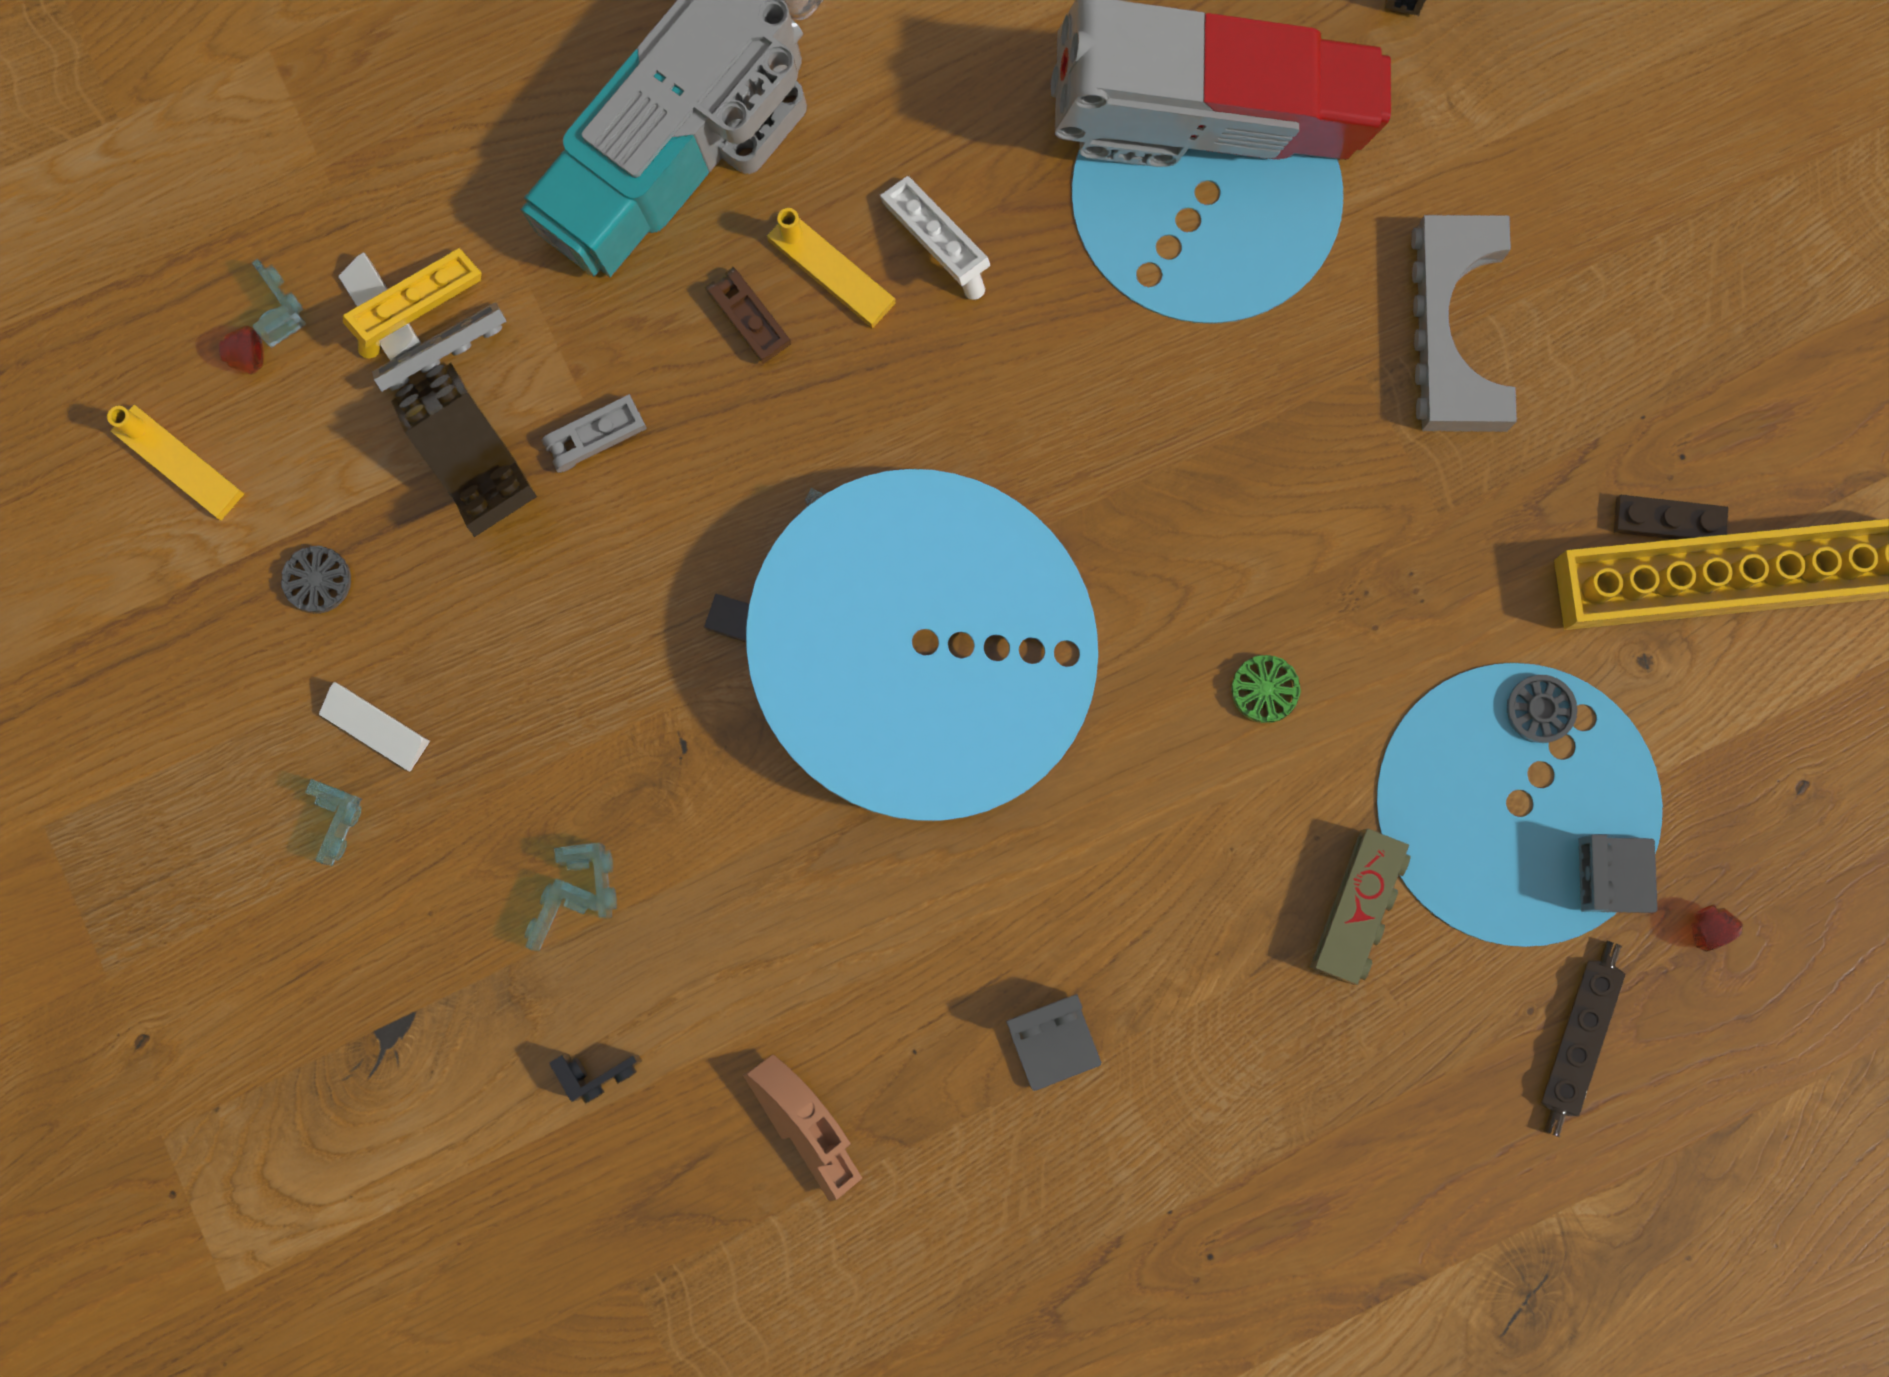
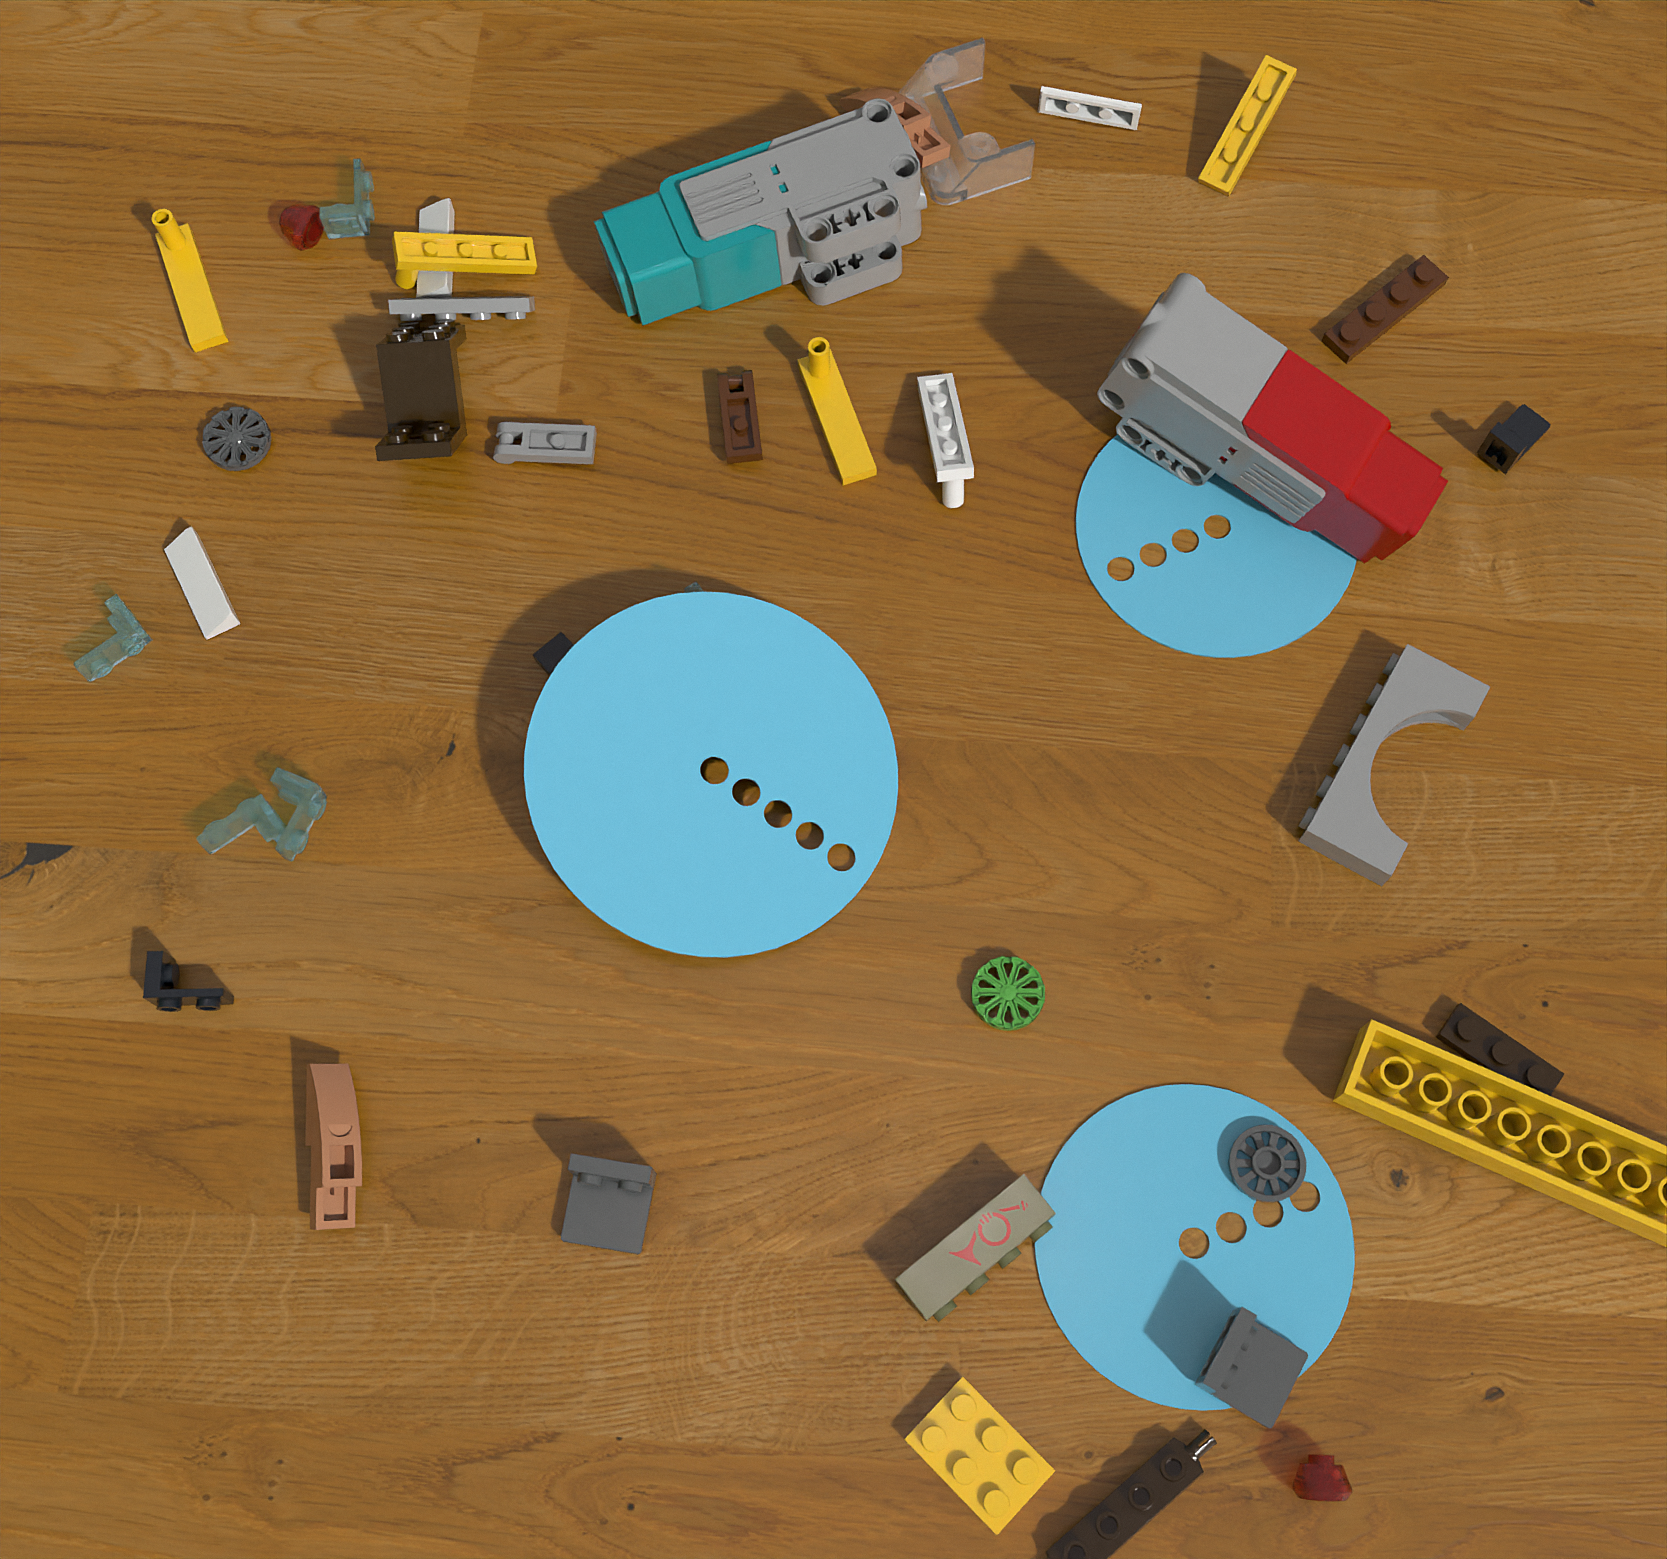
camera: 30 degrees right, 10 degrees down
(1451, 1060) = (979, 1455): none -> yellow plate

